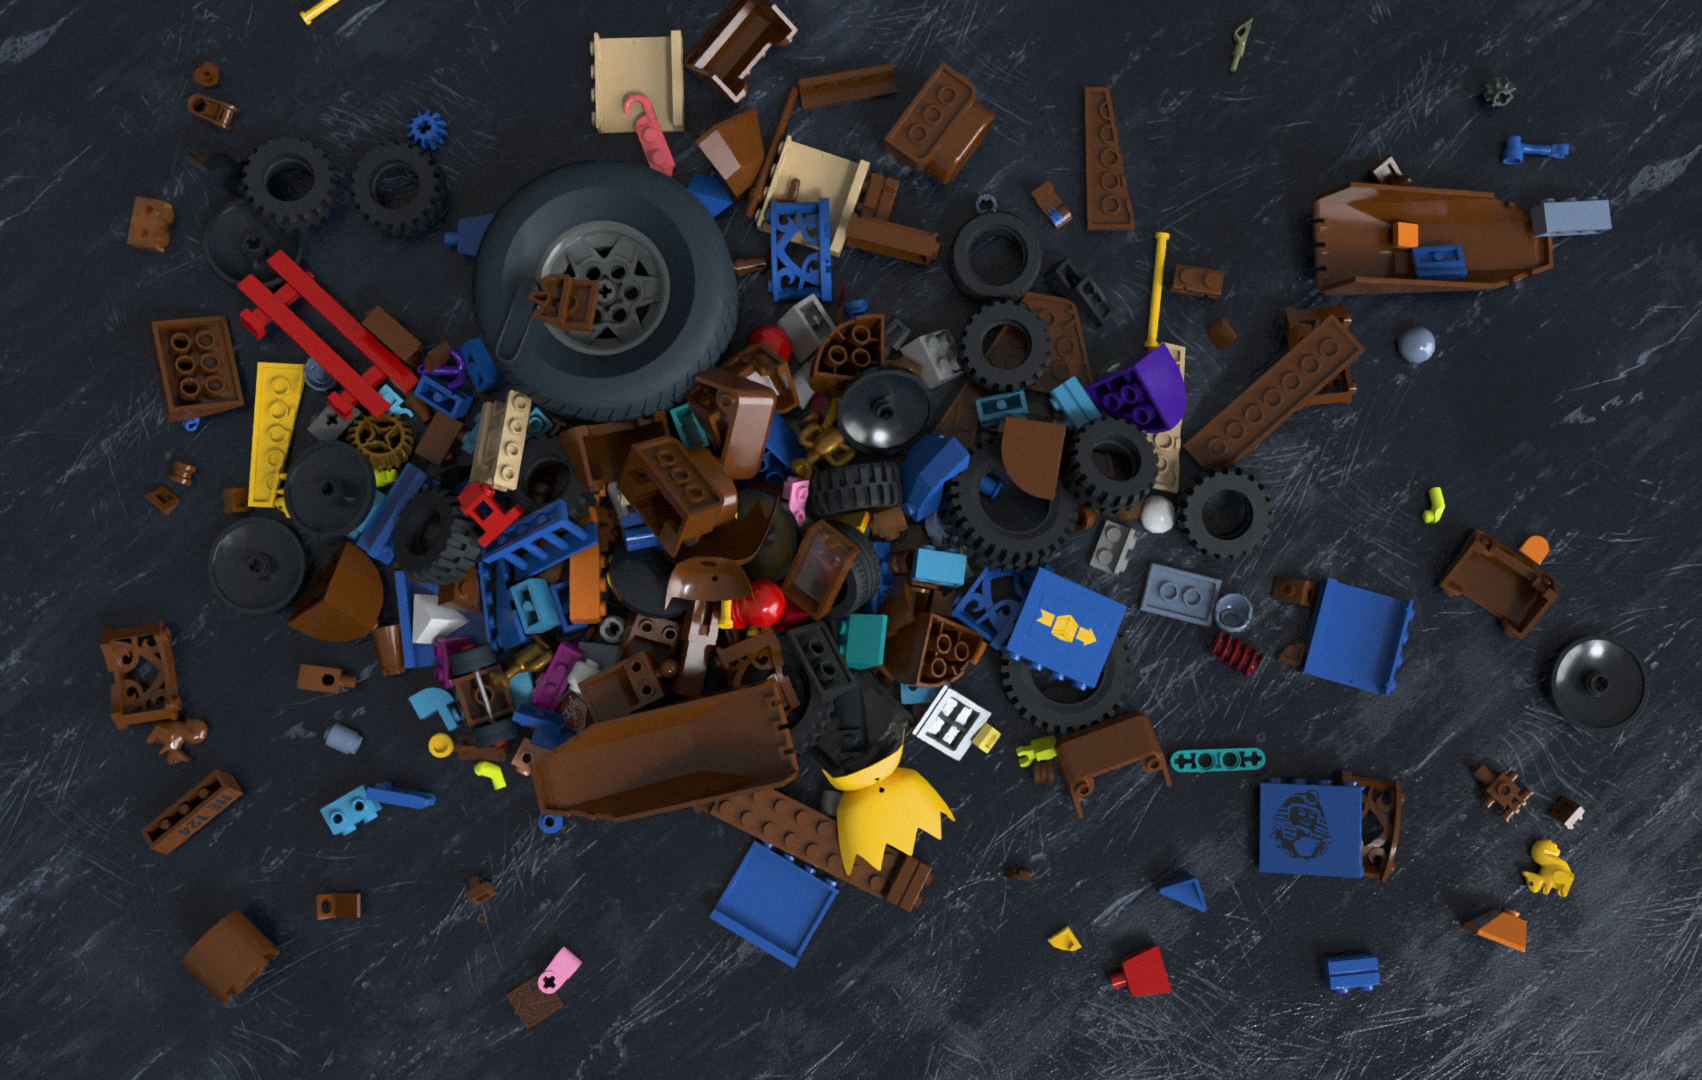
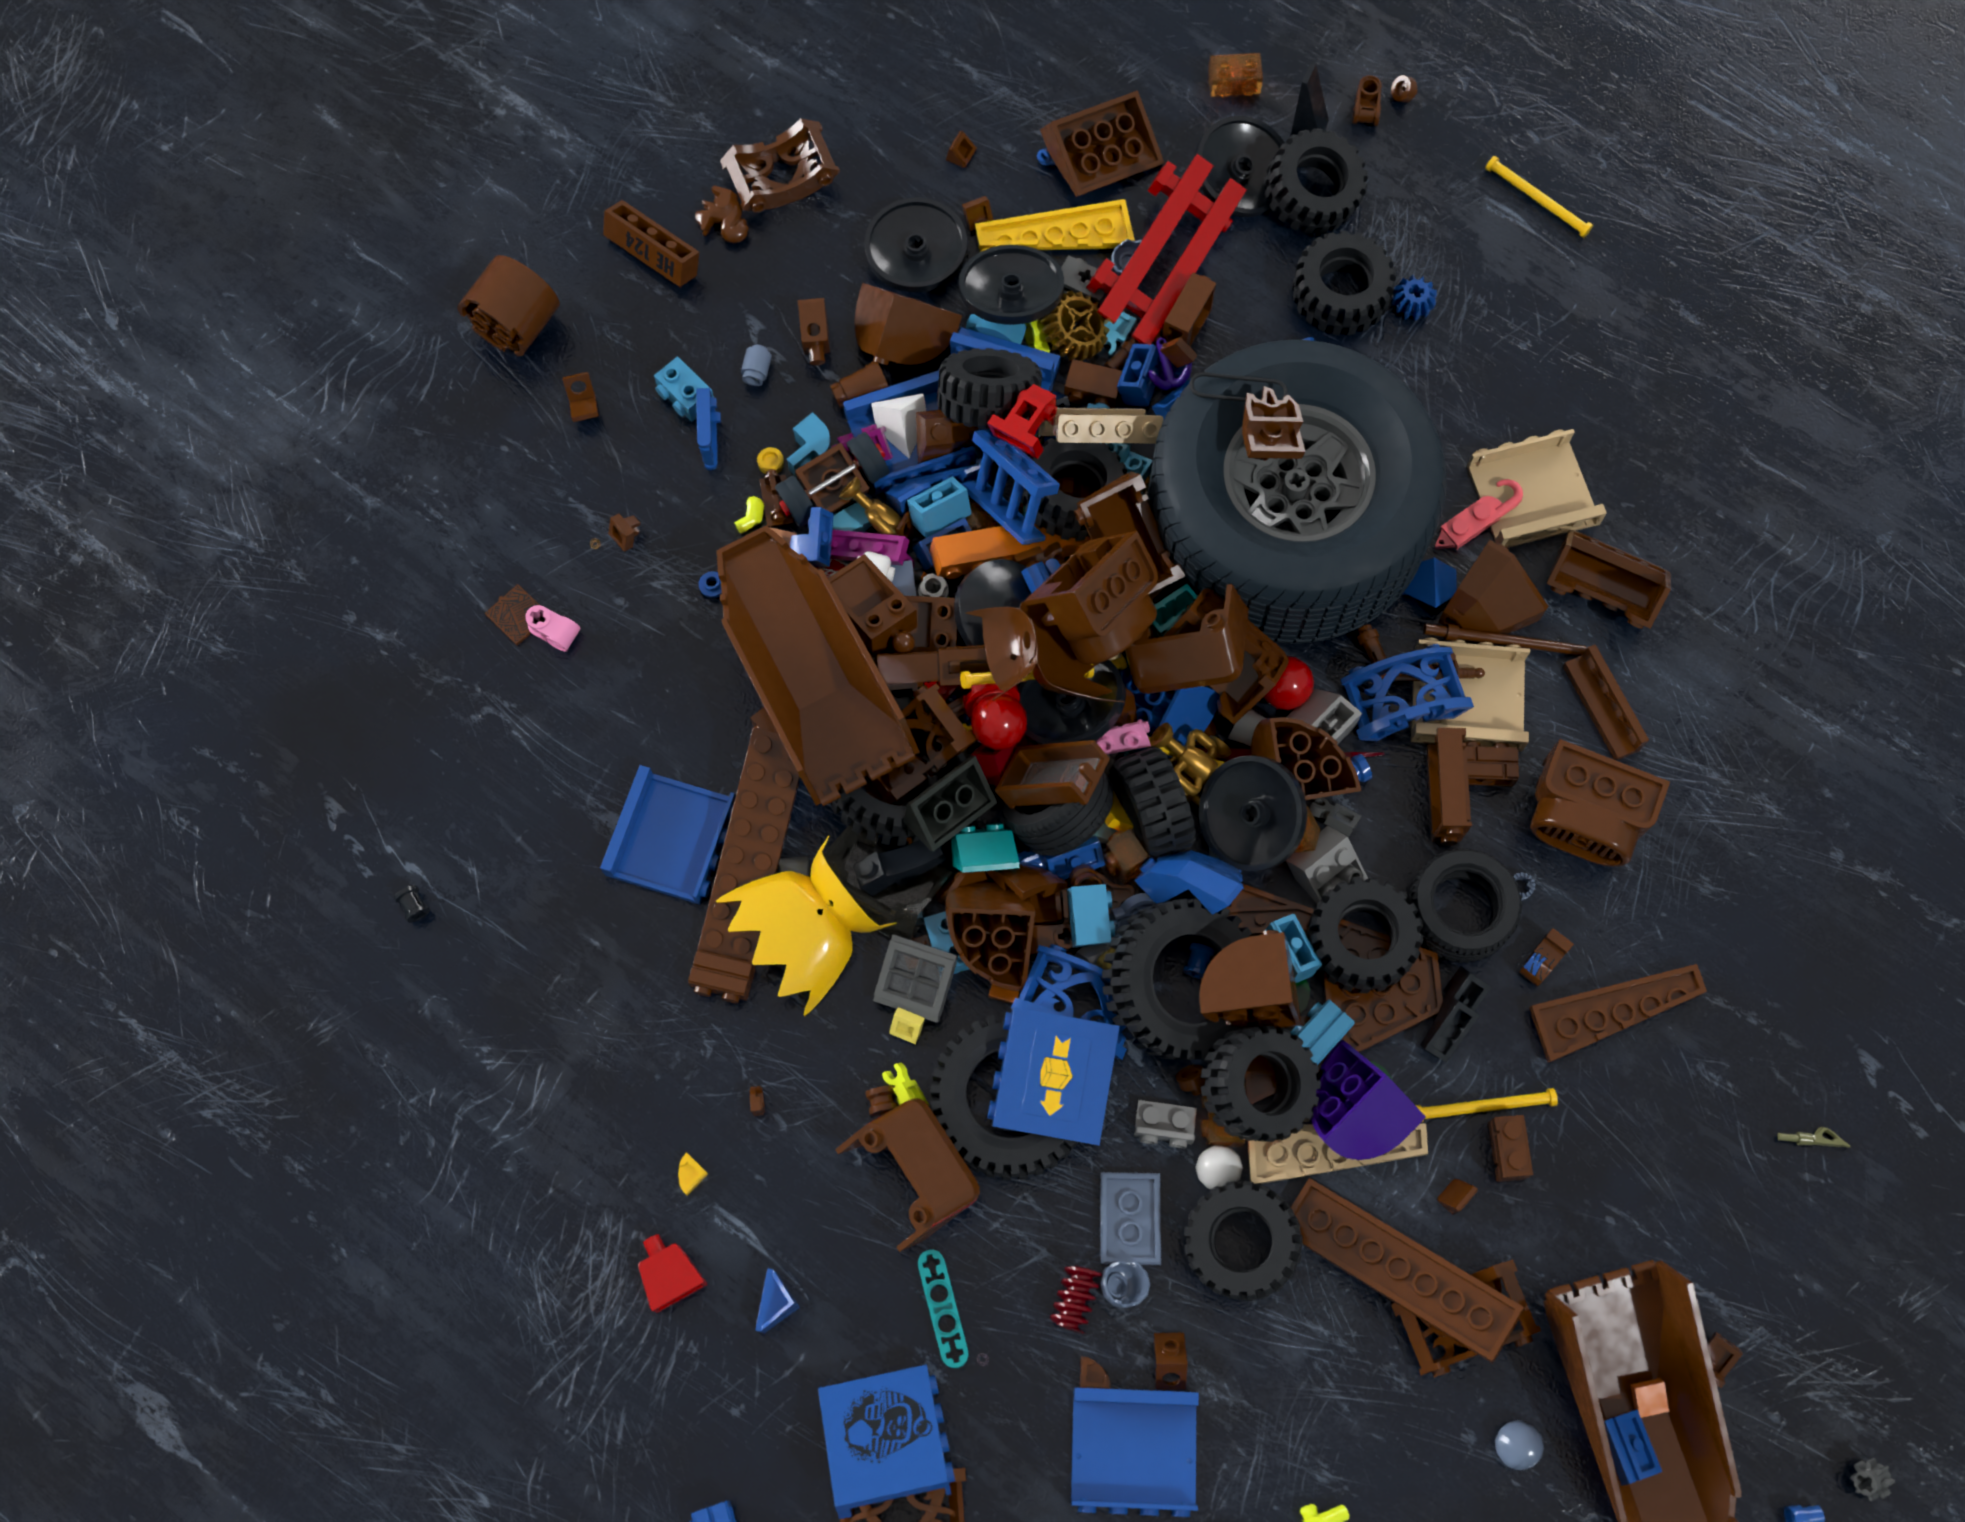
camera: 75 degrees right, 15 degrees down
(181, 473) = (992, 158): reddish brown wheel -> none

